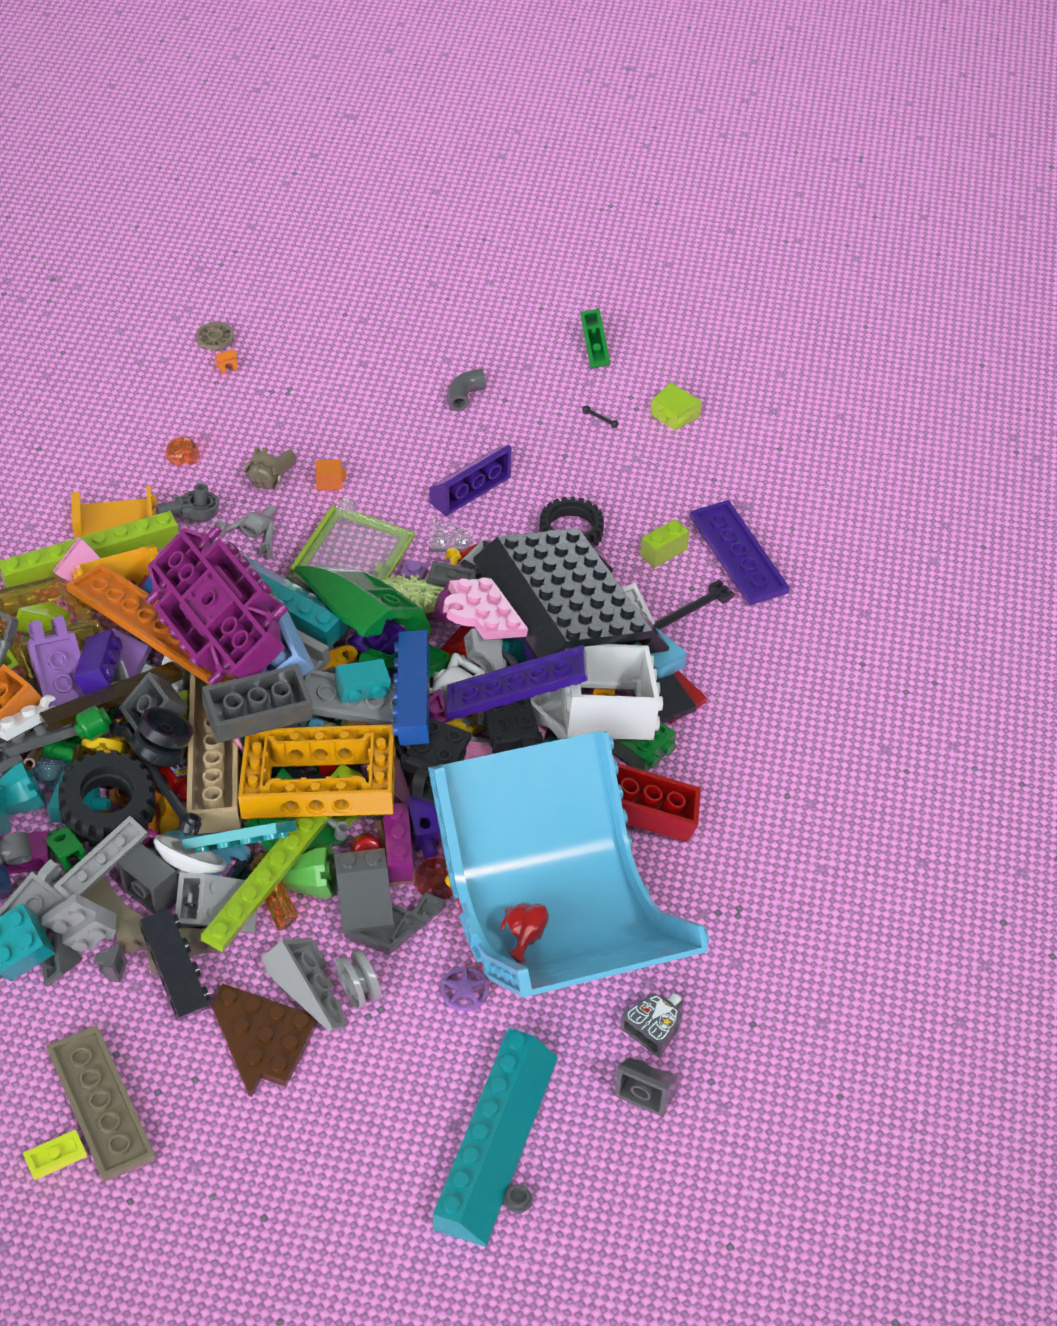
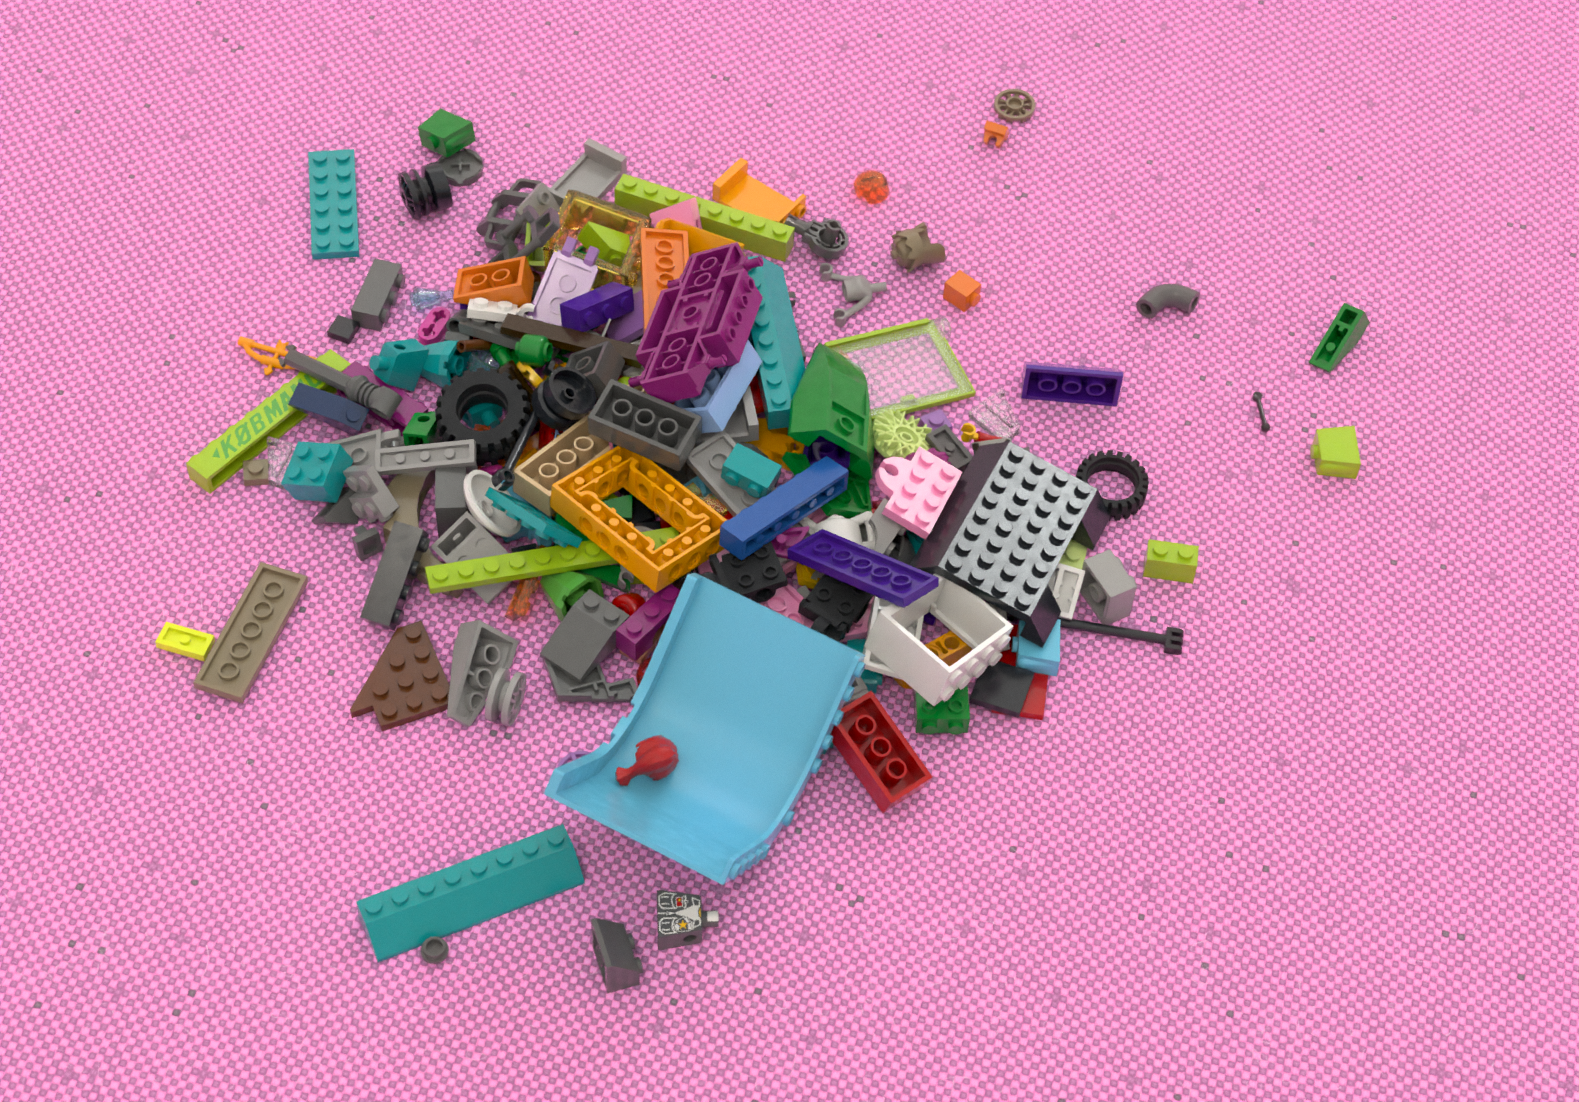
camera: 45 degrees right, 5 degrees up
(656, 584) = (1107, 587): none -> brick
(739, 552) = (1230, 620): dark purple plate -> none

